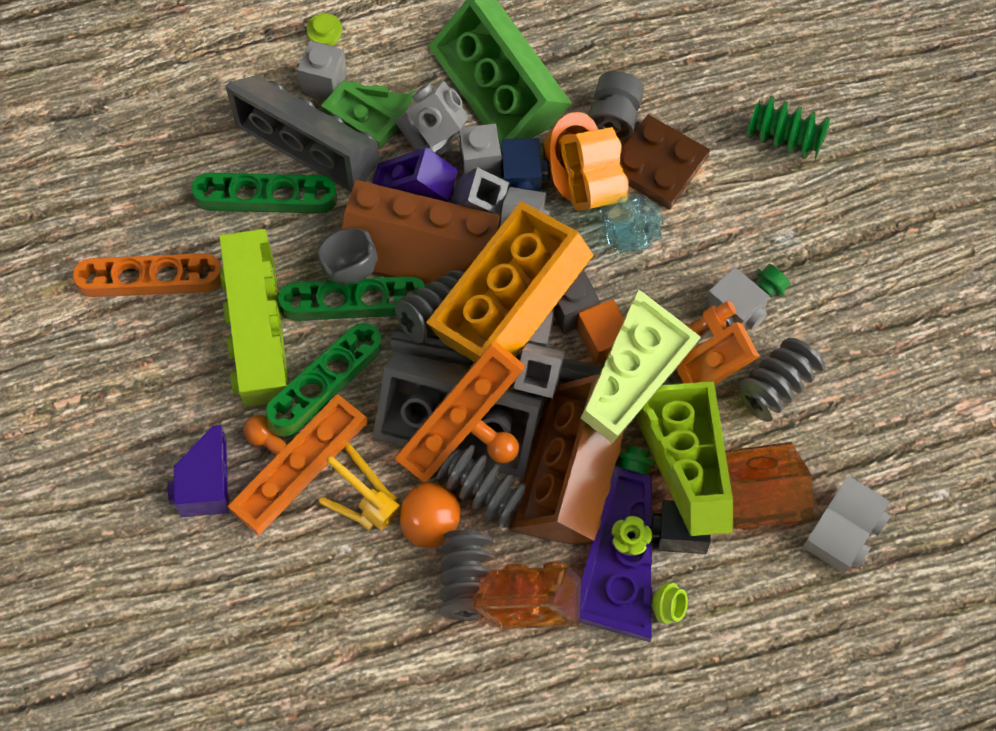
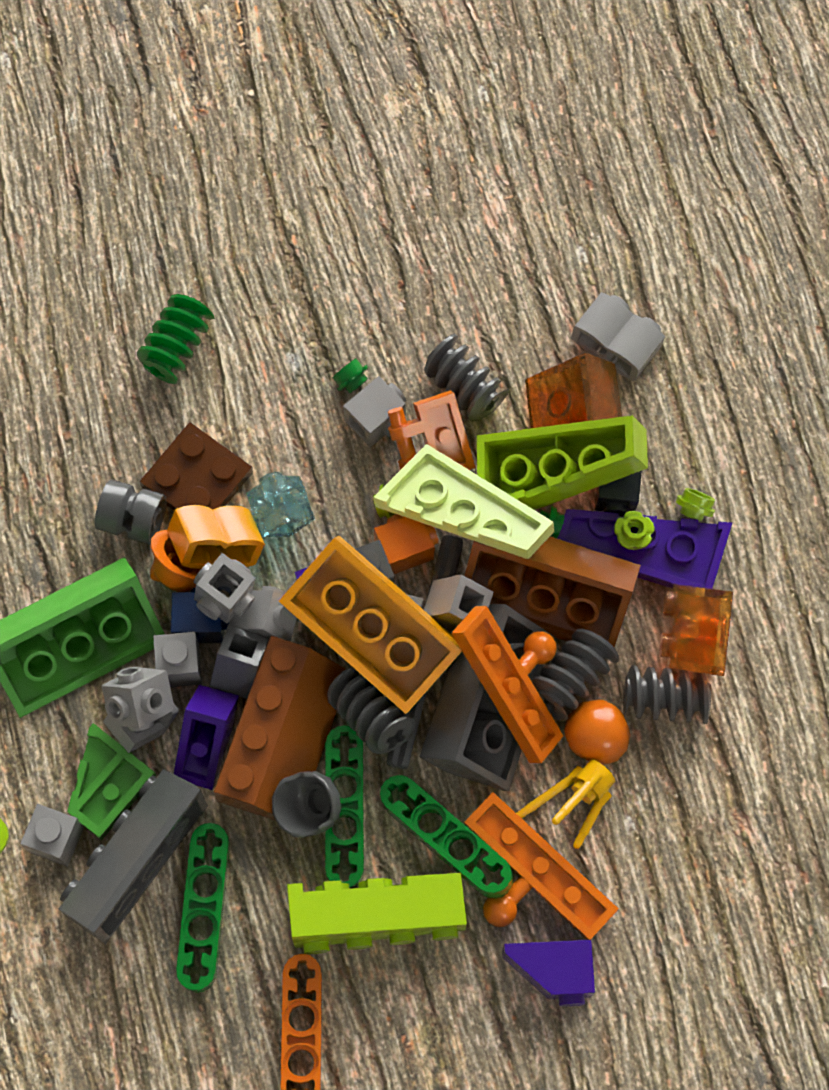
camera: 90 degrees left, 5 degrees up
(536, 167) = (227, 576): none -> light grey brick

